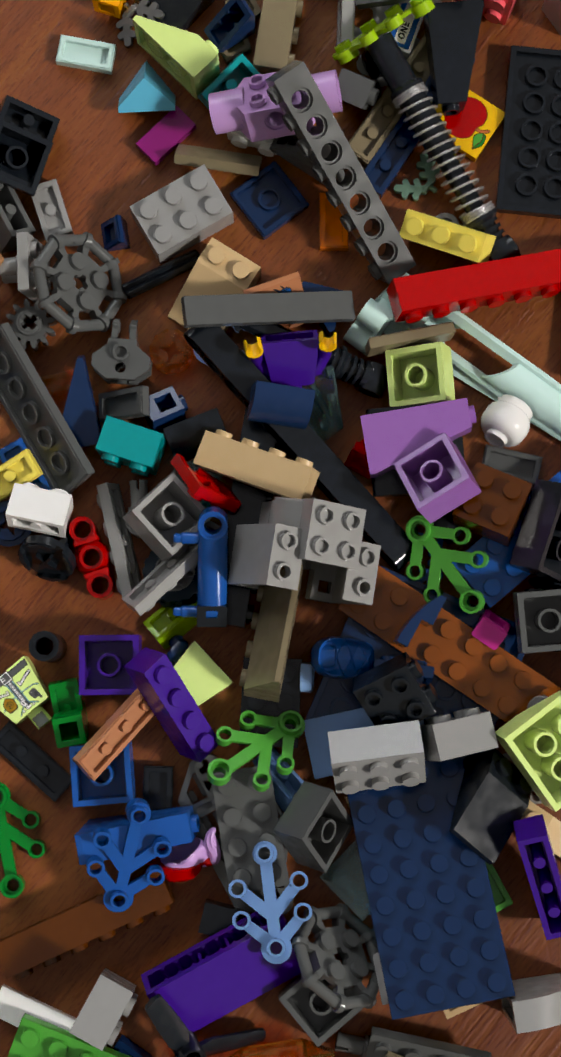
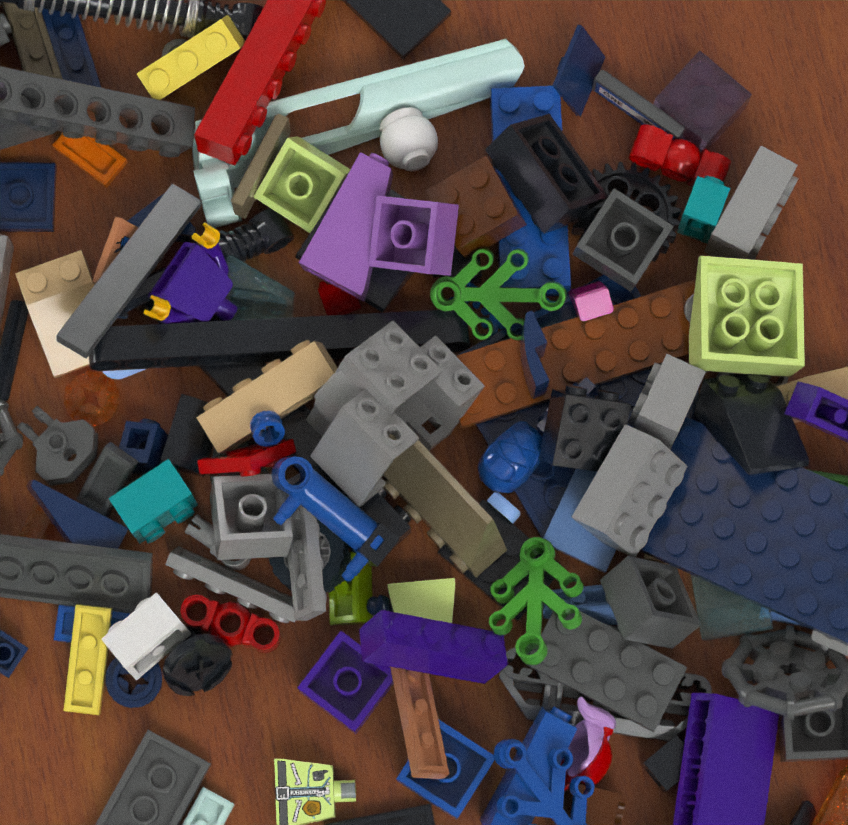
camera: 50 degrees left, 5 degrees down
(37, 642) = (276, 717): black pin -> none
(70, 713) = (362, 757): green brick -> none
(158, 786) = (496, 725): black tile -> none
(239, 482) = (261, 421): none -> blue bush
(271, 907) = (696, 695): medium blue plant -> none
(280, 404) = (229, 327): dark blue brick -> none
(417, 189) = (122, 54): sand green animal -> none
(513, 463) = (451, 161): dark grey tile -> none

